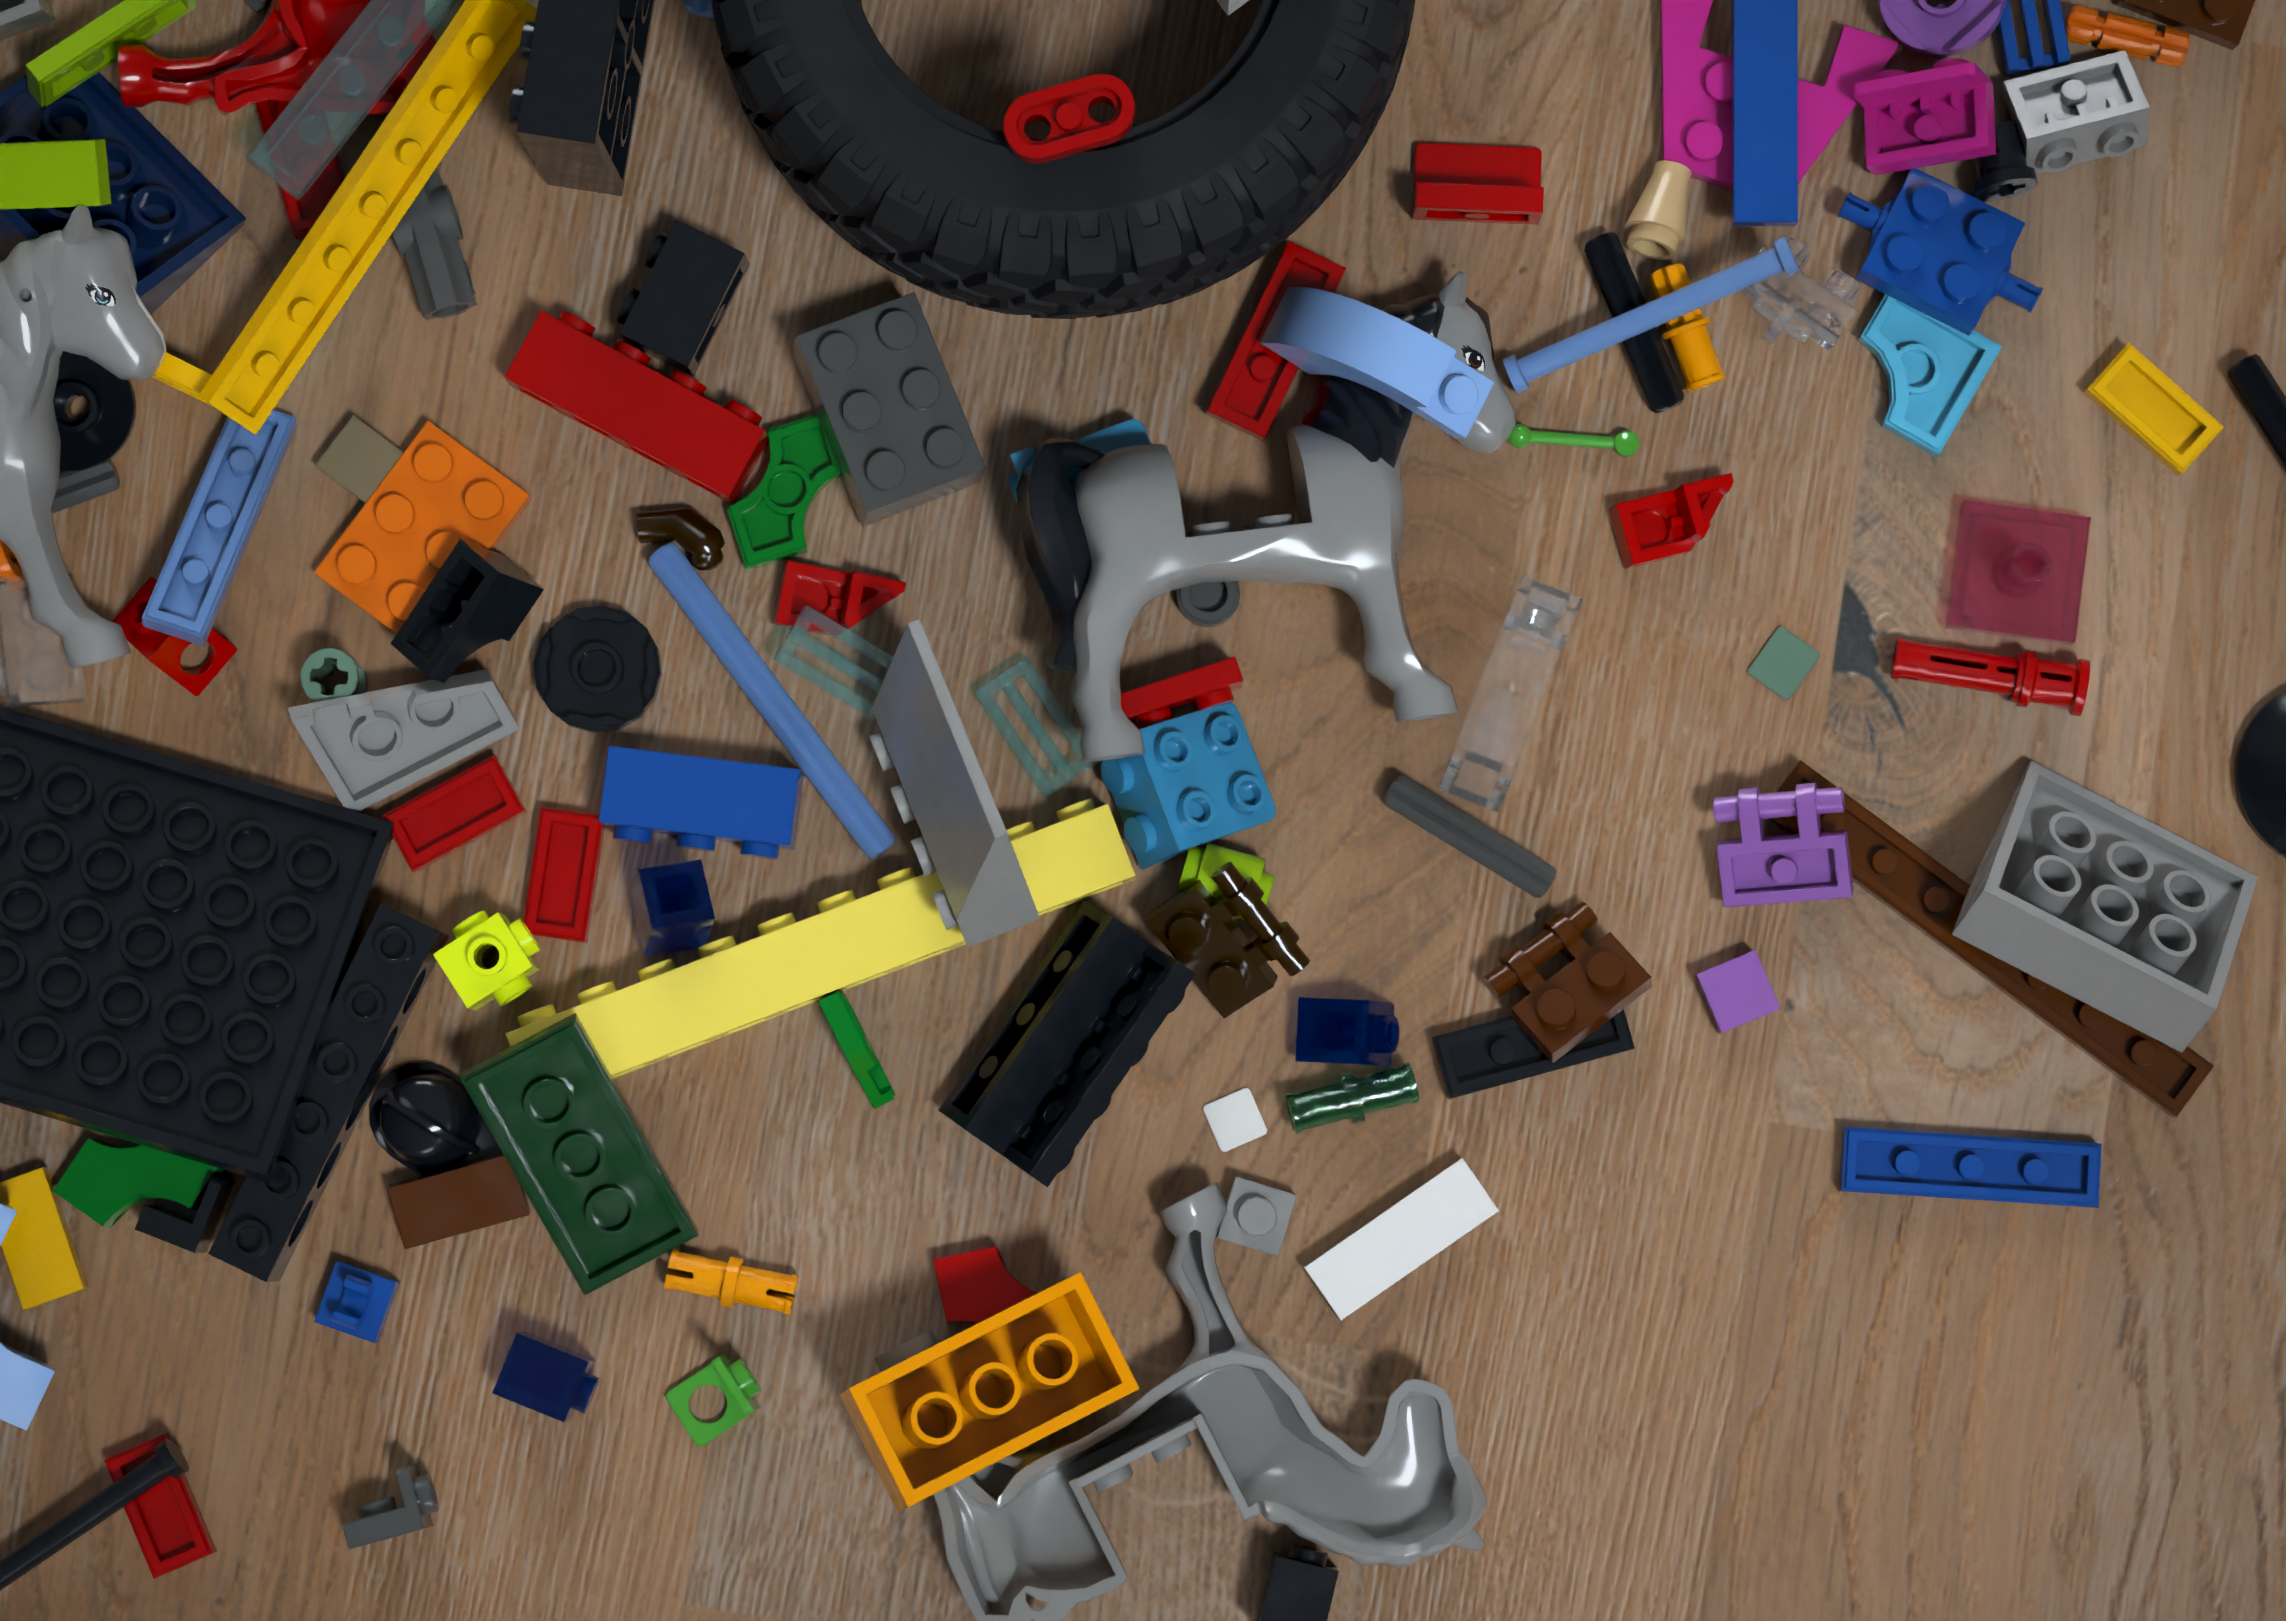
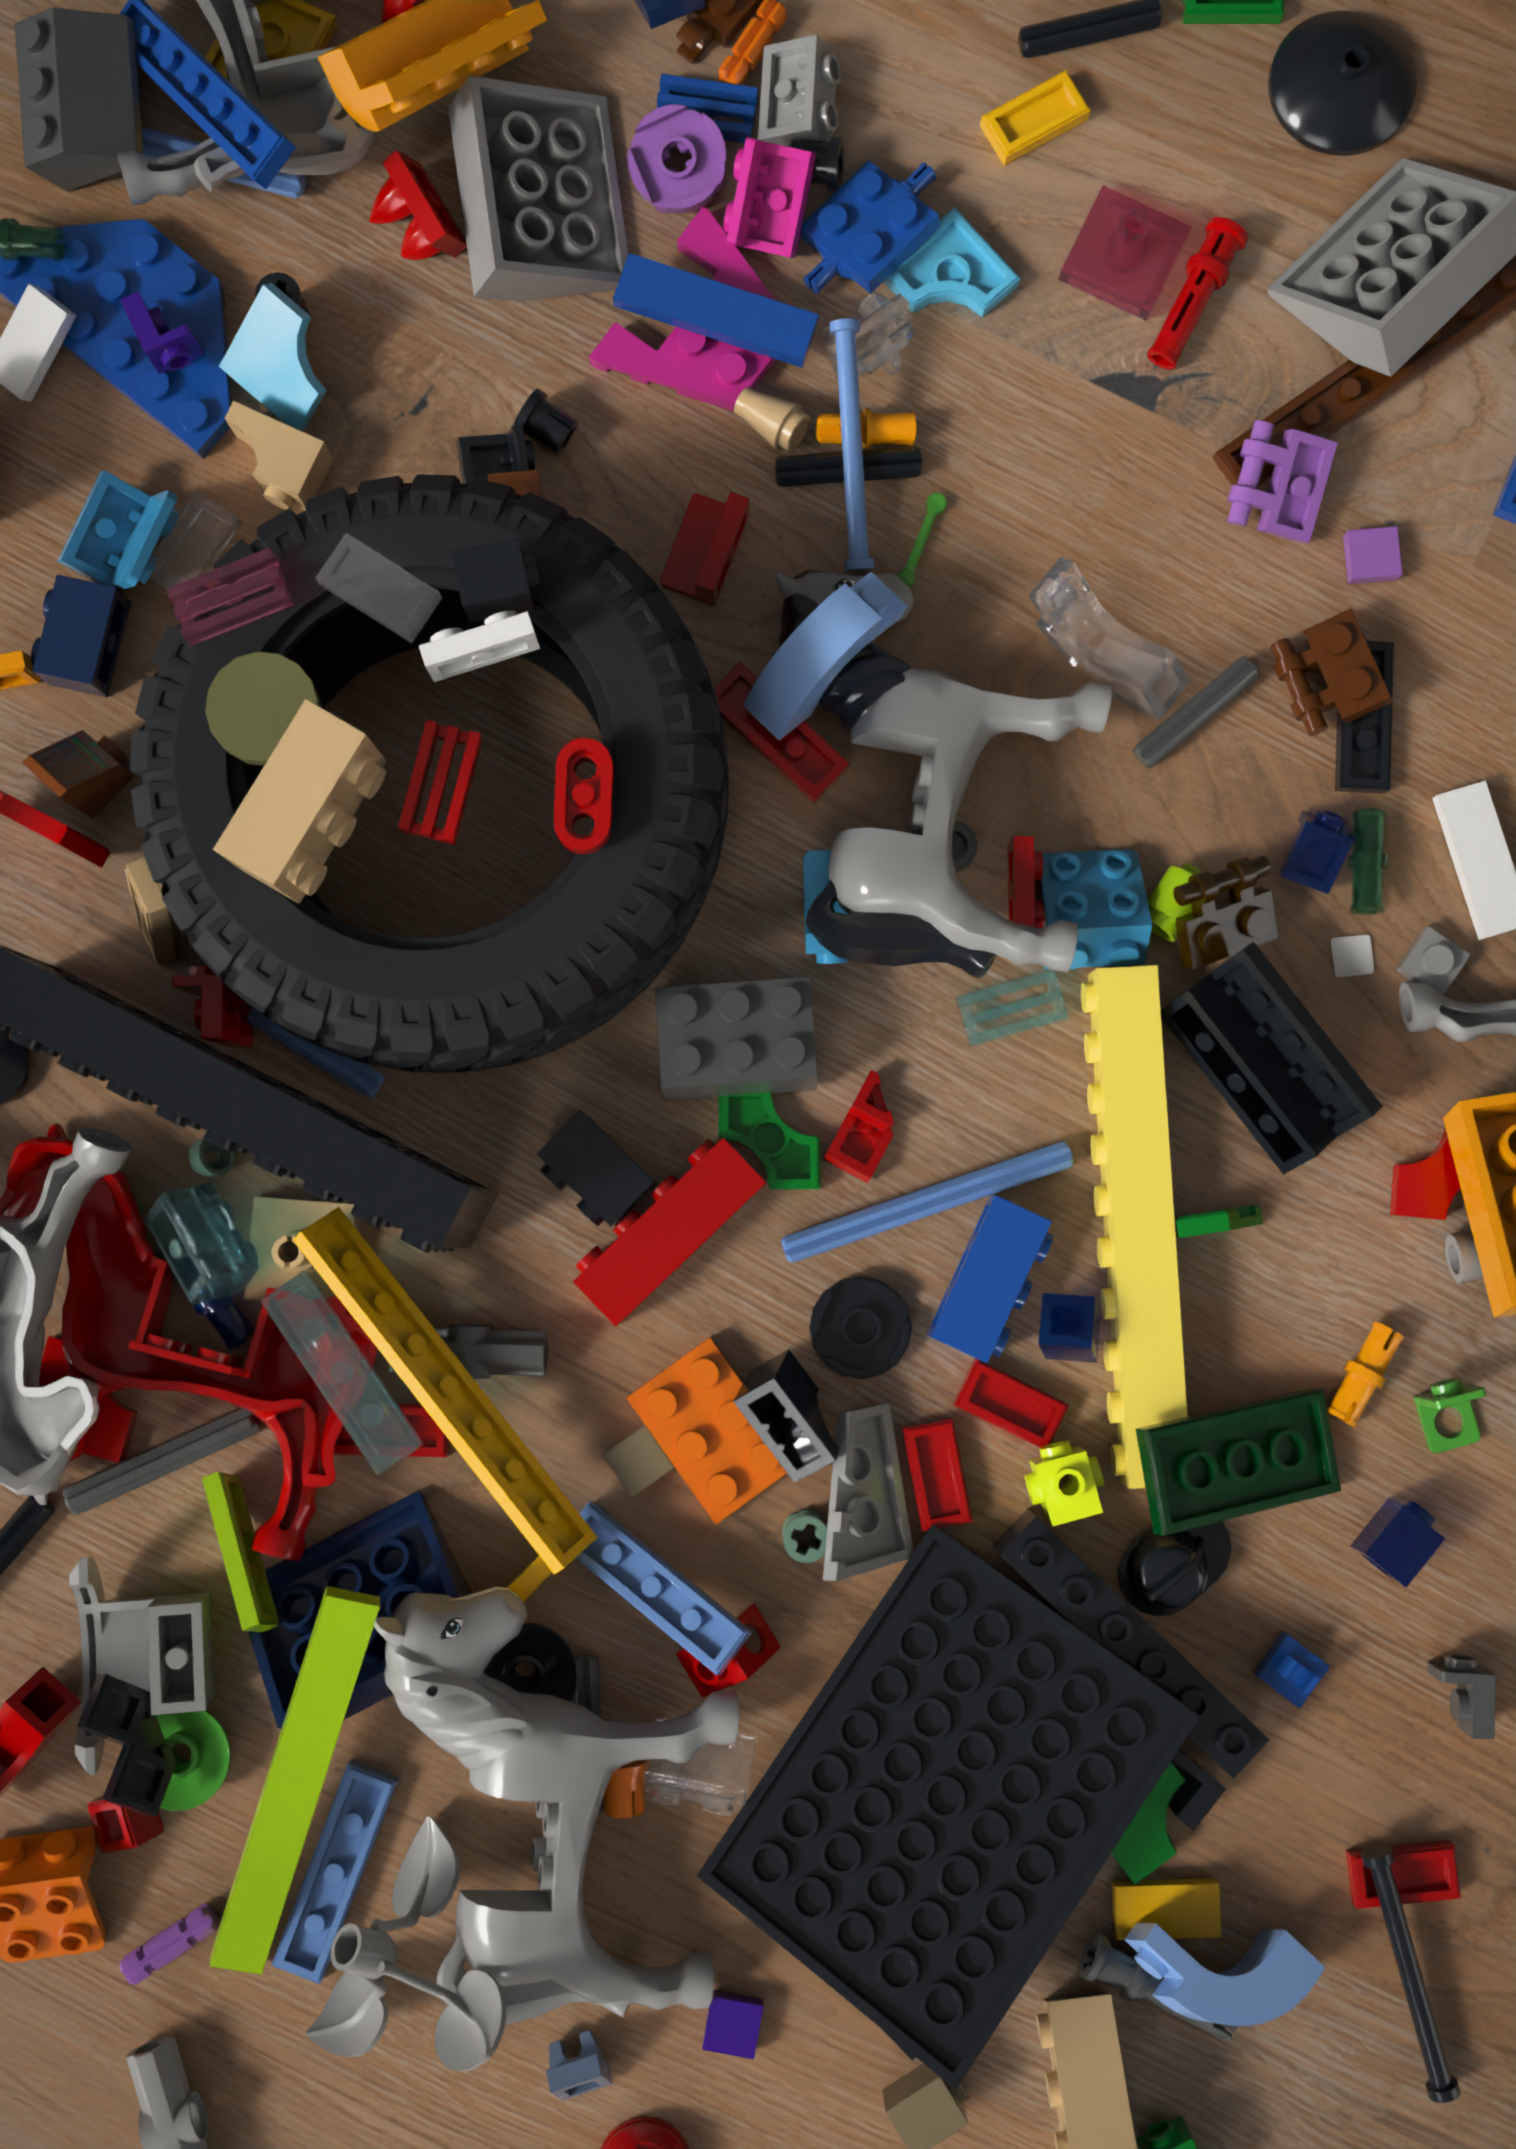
camera: 75 degrees left, 0 degrees up
(457, 1200) = (1238, 1568): reddish brown tile -> none
(688, 530) = (776, 1222): dark brown arm -> none
(797, 638) = (888, 1165): clear light blue tile -> none
(947, 797) = (1061, 1082): light grey slope -> none
(1668, 521) = (1005, 491): red slope -> none
(1783, 663) = (1136, 444): sand green sticker -> none

